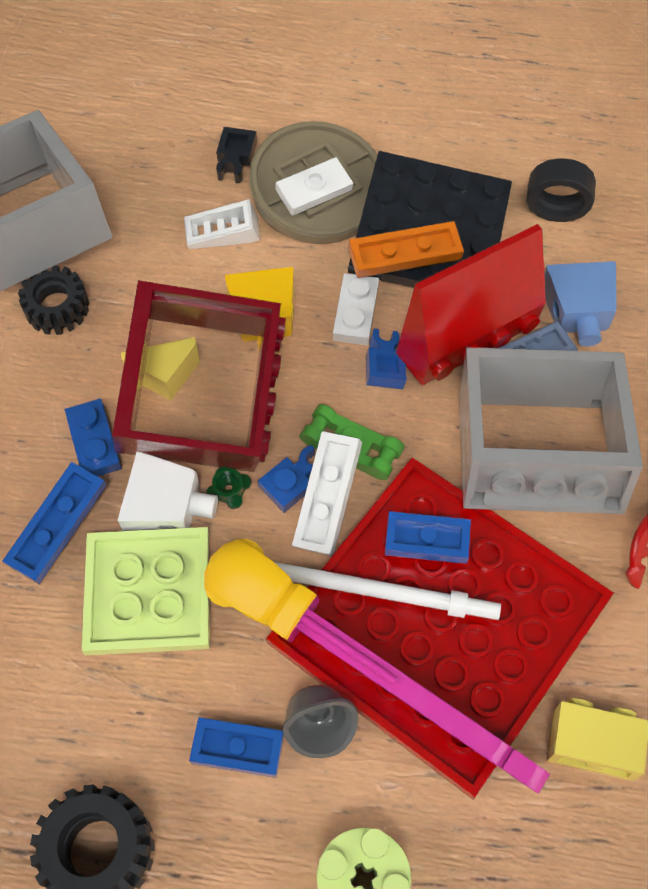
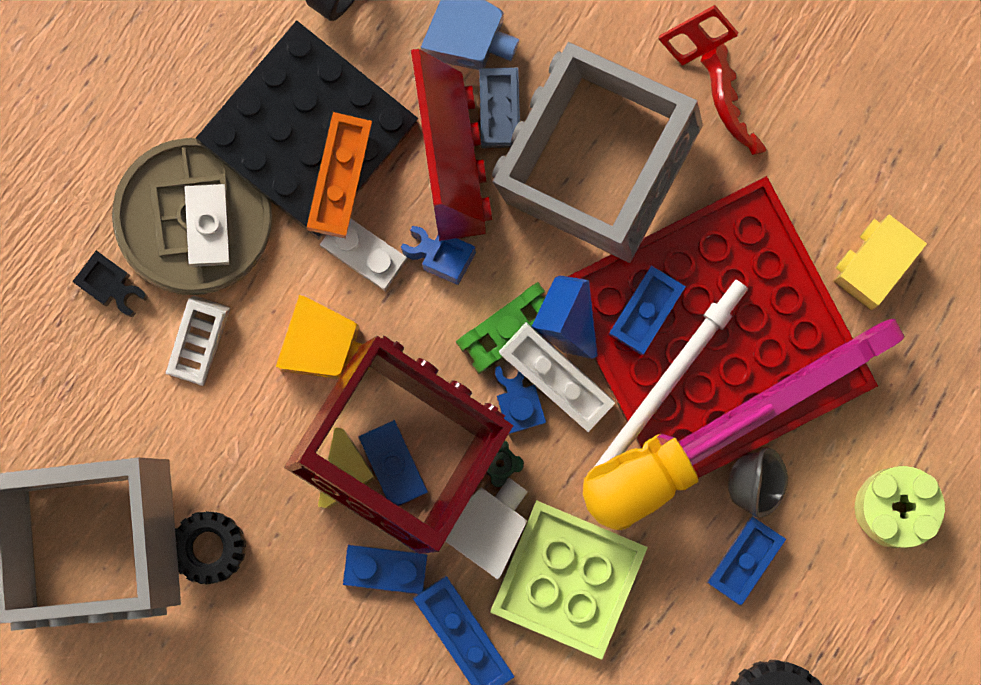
camera: 65 degrees left, 20 degrees up
(187, 404) = (393, 463): none -> blue plate
(382, 474) = (568, 317): none -> blue slope

